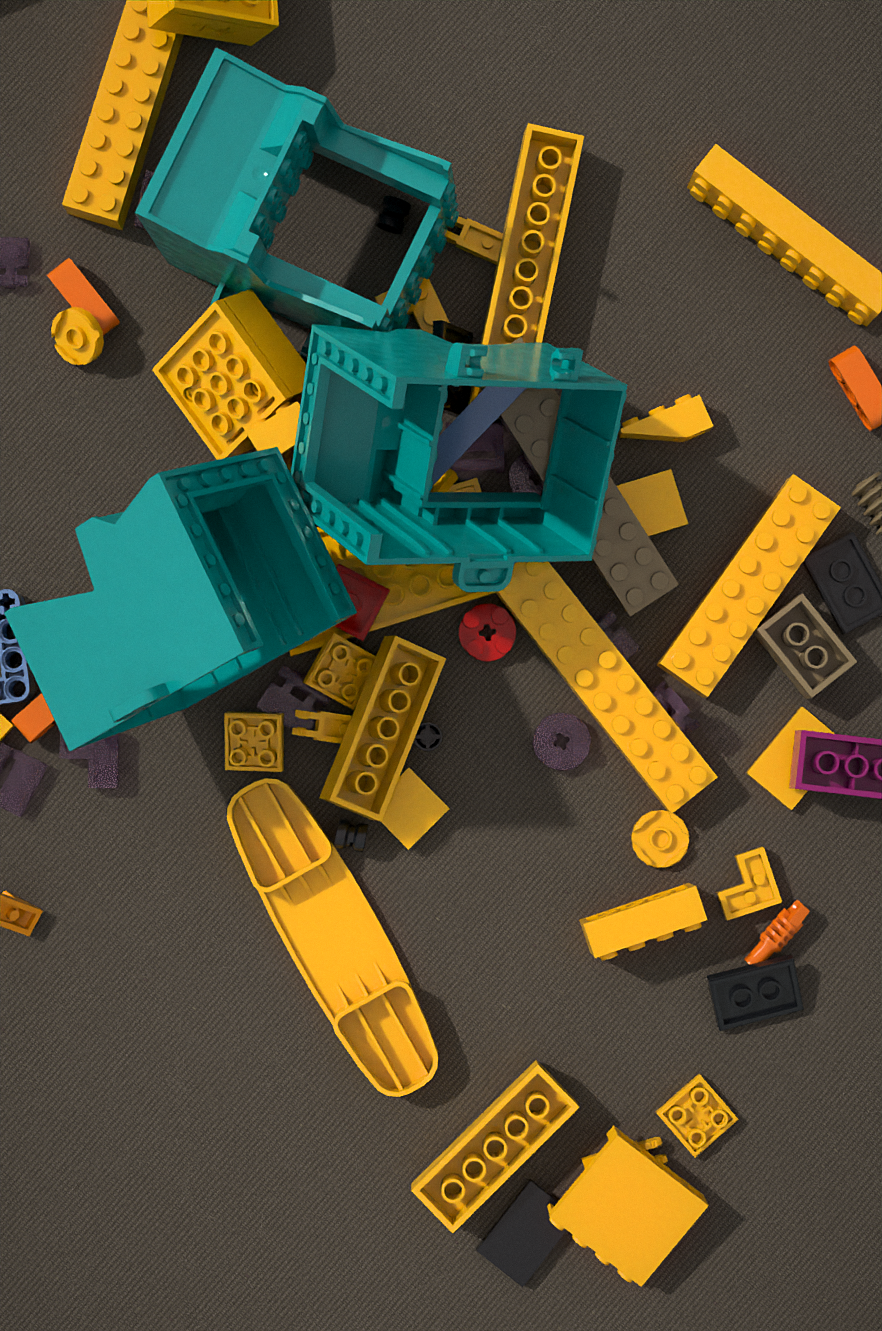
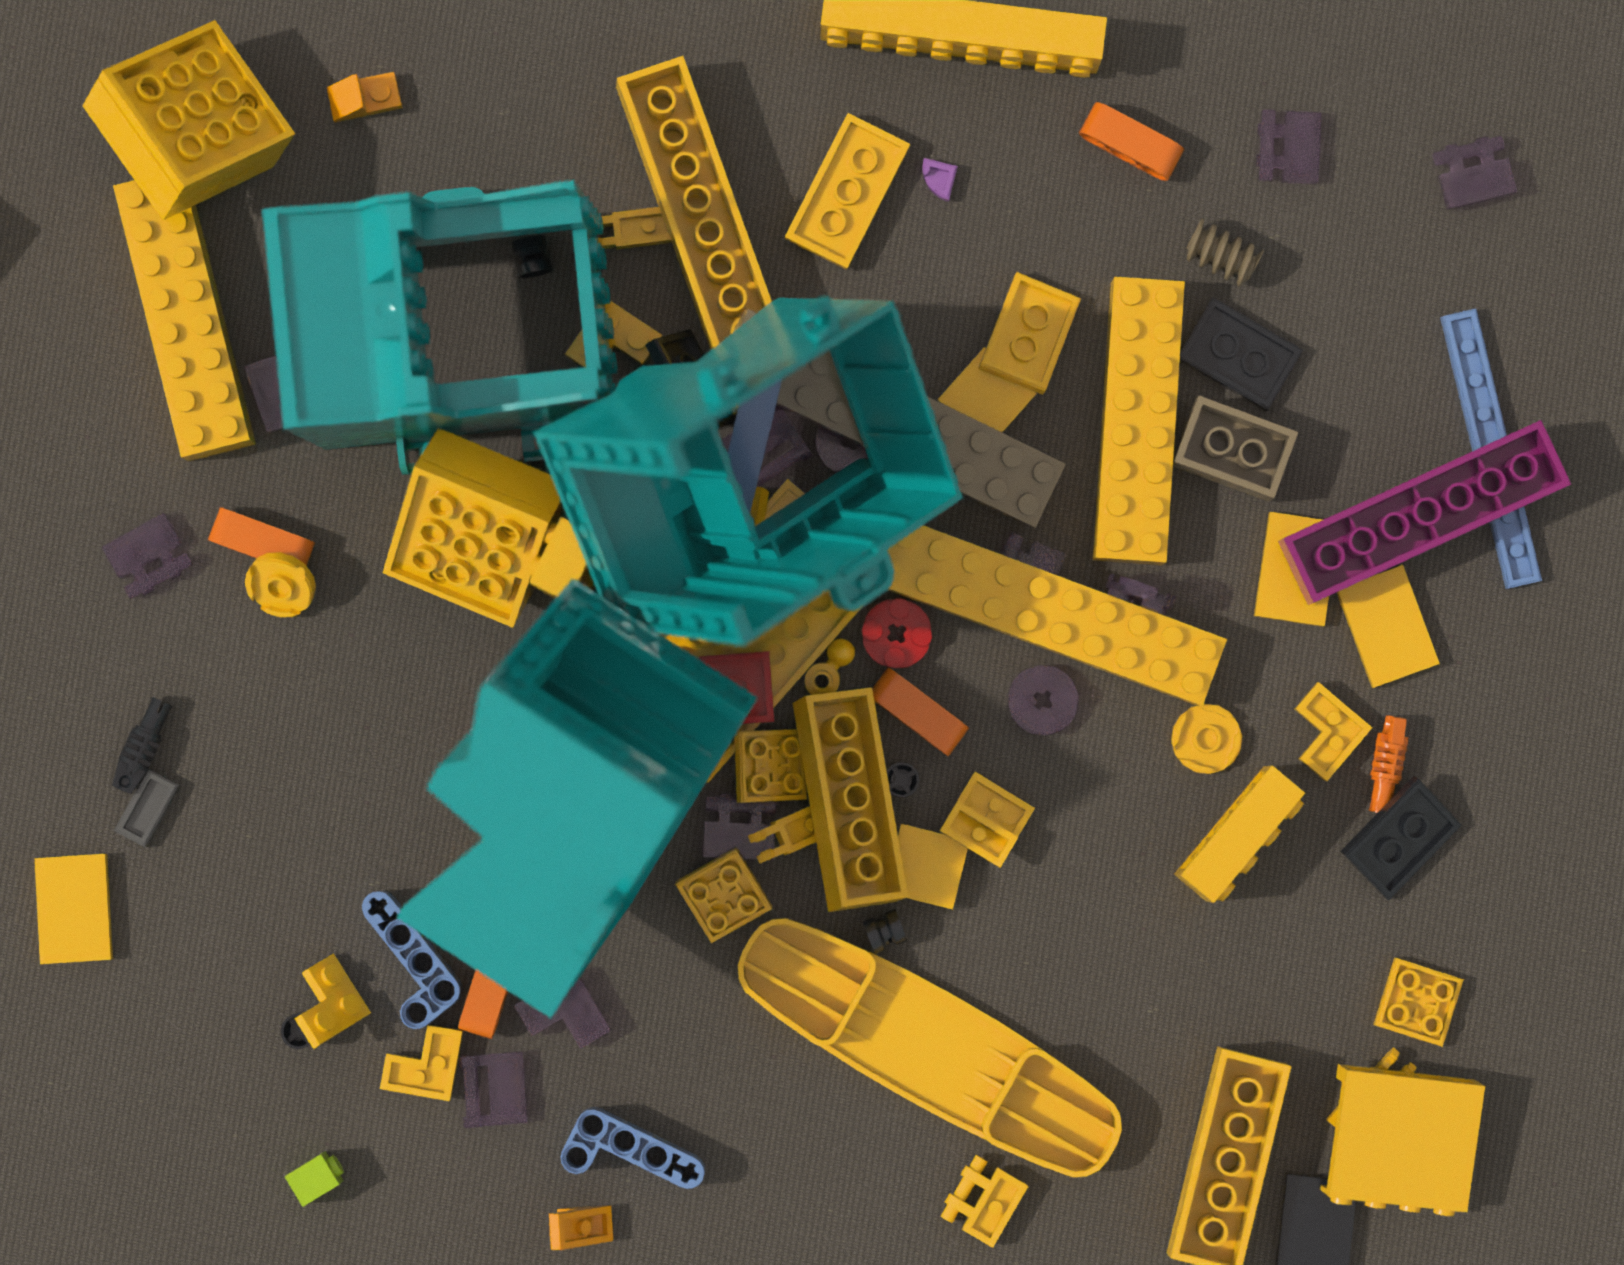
camera: 25 degrees left, 0 degrees up
(82, 887) = (637, 1154): none -> medium blue beam
(310, 1076) = (993, 1207): none -> yellow plate
(343, 34) = (364, 96): none -> light orange slope
(438, 622) = (839, 654): none -> yellow plate
(469, 696) = (918, 711): none -> orange beam
(471, 801) = (987, 819): none -> yellow slope
(641, 302) = (847, 191): none -> yellow plate
(674, 424) = (962, 295): yellow slope -> none
(709, 478) = (1029, 333): none -> yellow tile
(711, 332) = (939, 177): none -> medium lavender tile
(836, 837) = (1387, 626): none -> yellow tile

